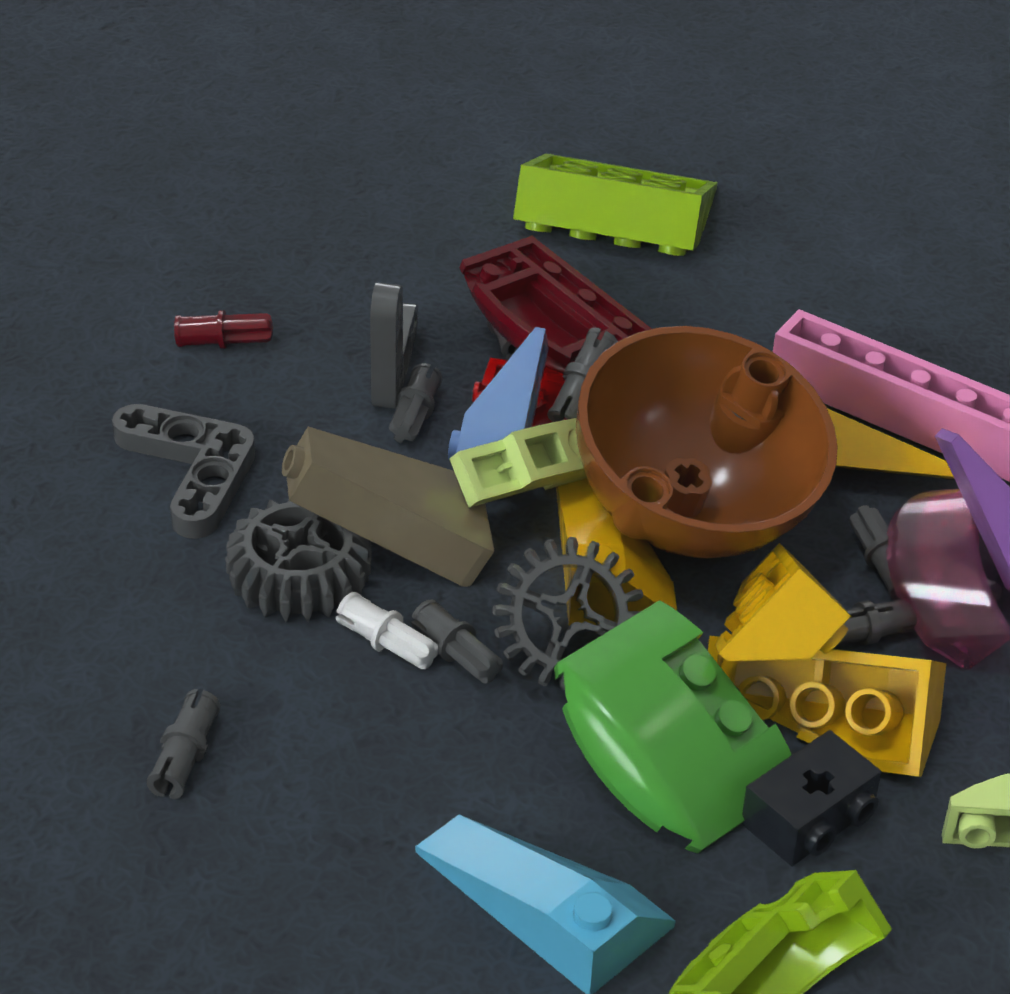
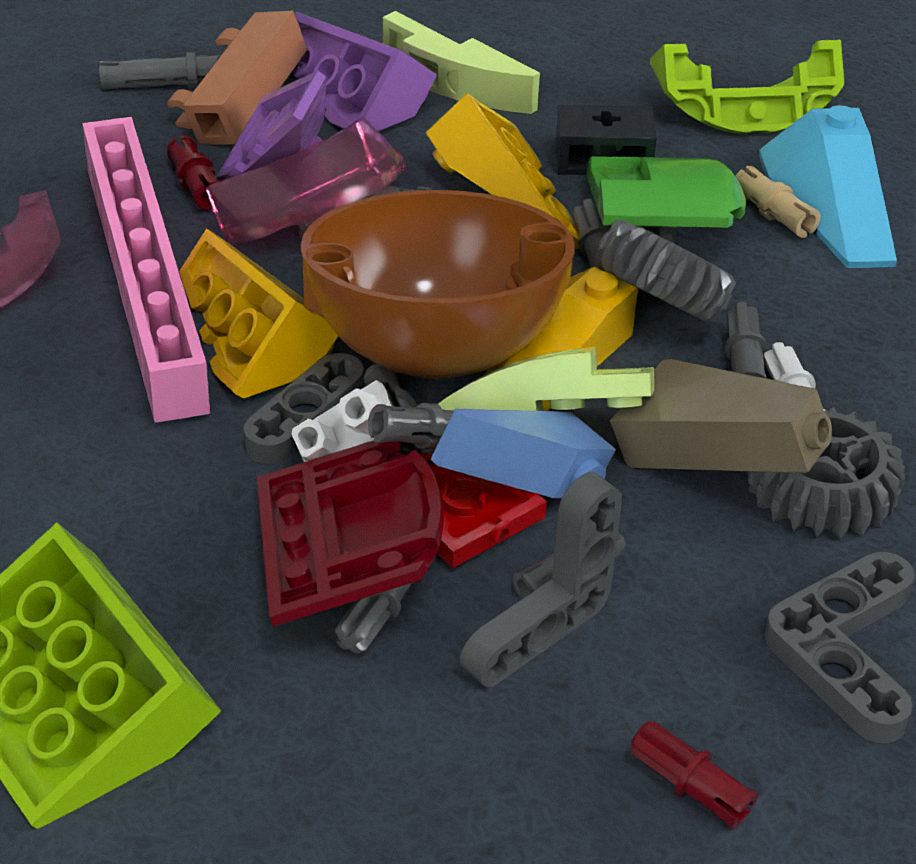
camera: 140 degrees left, 0 degrees up
(584, 834) = (778, 202): none -> tan pin
(781, 614) = (535, 156): yellow wedge -> none

